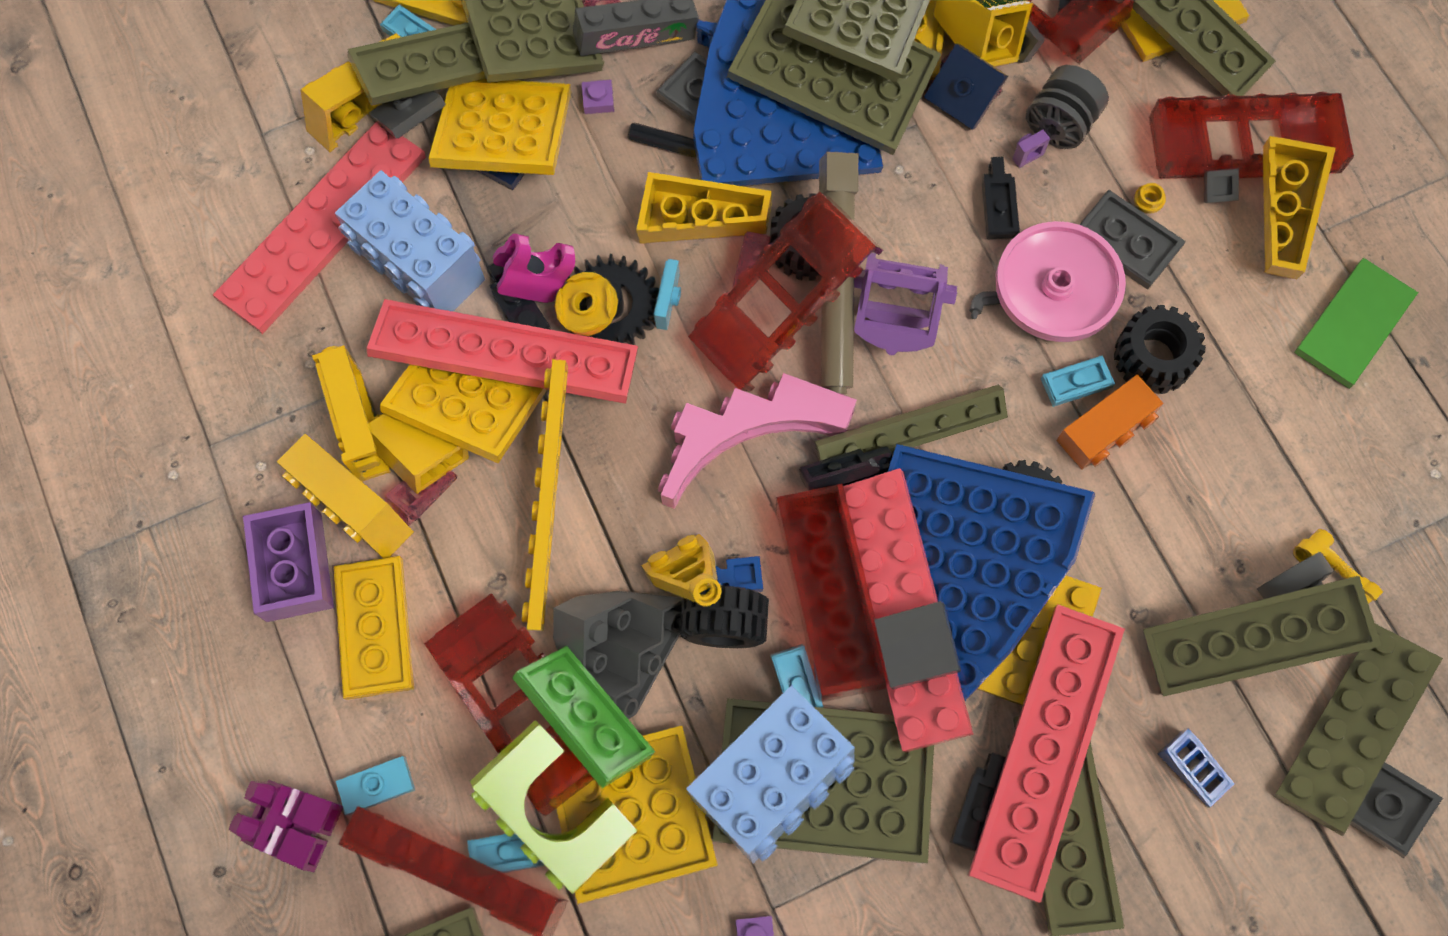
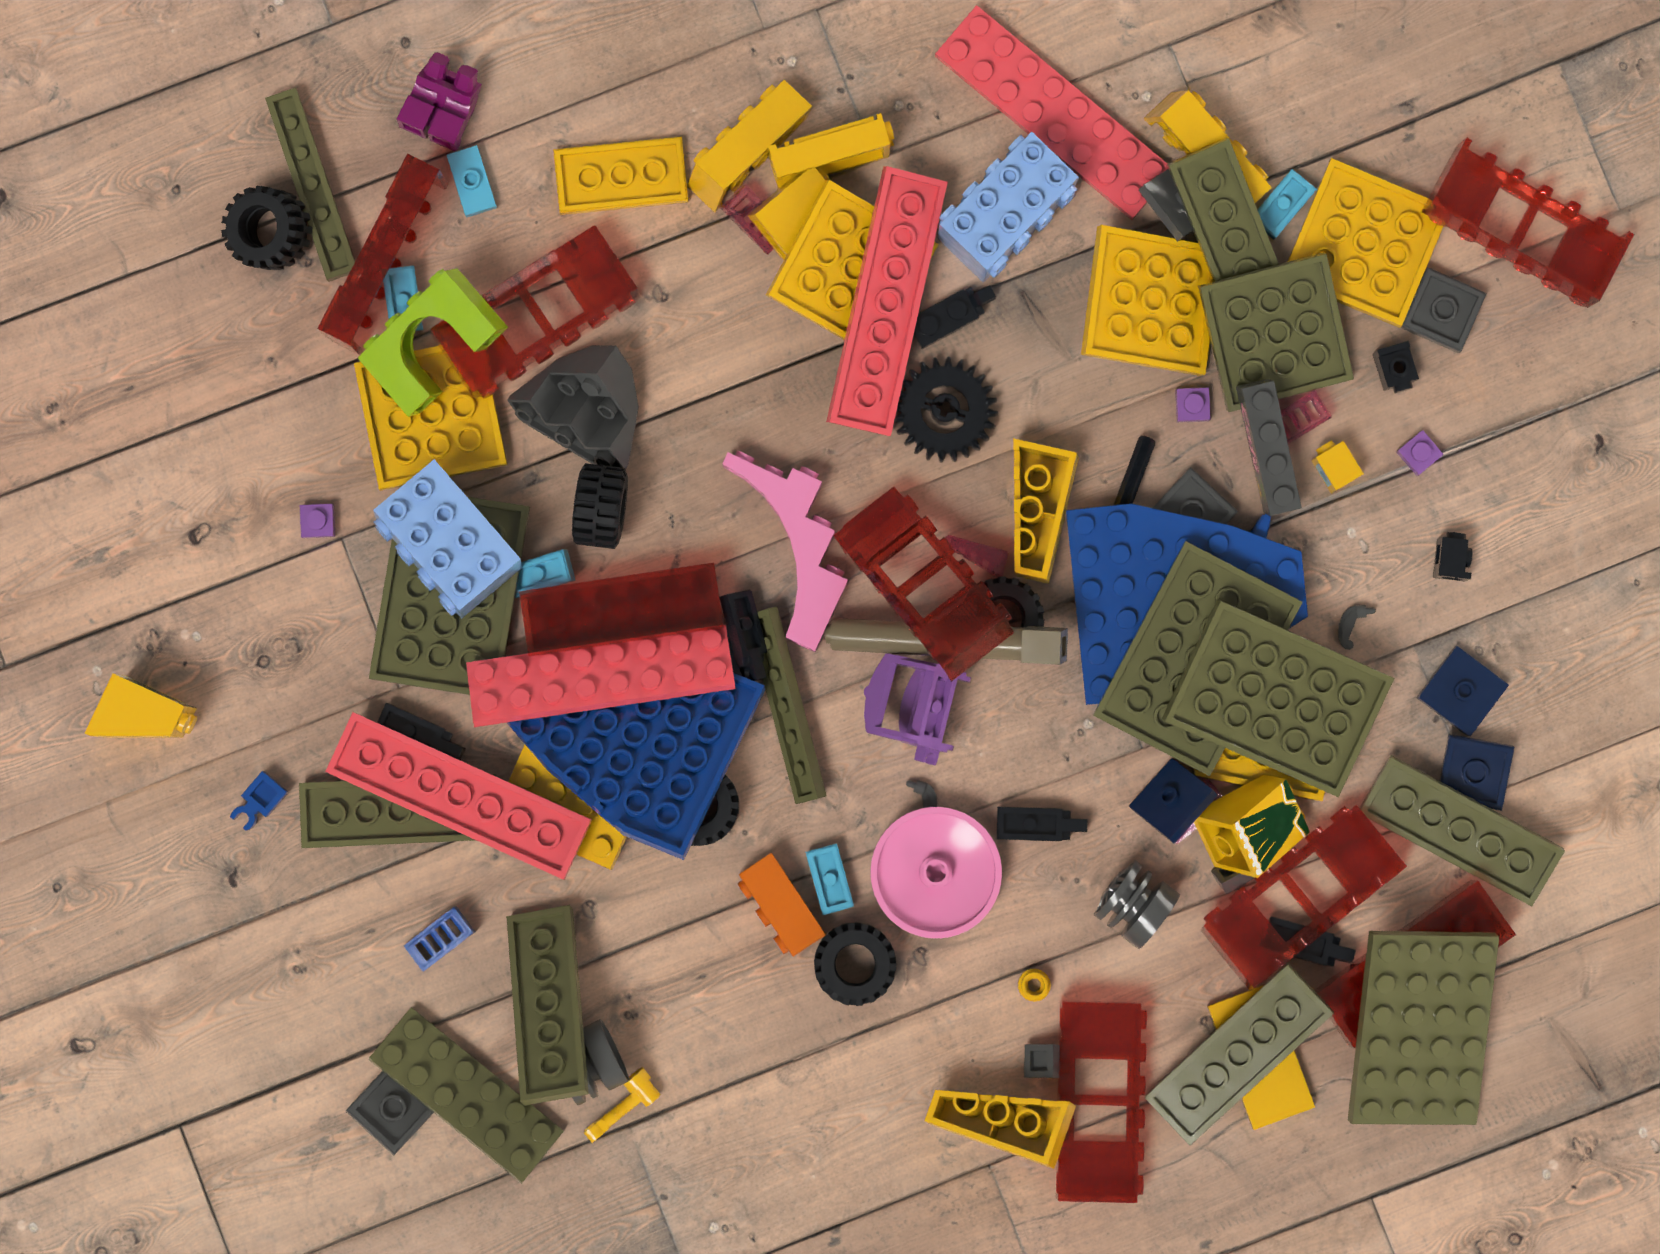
camera: 90 degrees right, 15 degrees up
(287, 562) = (683, 94): medium lavender brick -> none
(533, 274) = (974, 334): dark pink piece -> none
(544, 509) = (745, 341): yellow plate -> none
(584, 716) = (512, 371): bright green tile -> none
(598, 315) = (934, 402): yellow tile -> none
(668, 294) = (948, 470): medium azure plate -> none
(686, 570) = (665, 464): yellow plate -> none
(742, 573) = (647, 527): blue plate -> none
(917, 645) = (556, 681): dark grey tile -> none
(1030, 148) = (1099, 863): medium lavender plate -> none
(1137, 239) = (989, 956): dark grey tile -> none
(1356, 323) = (879, 1177): bright green tile -> none

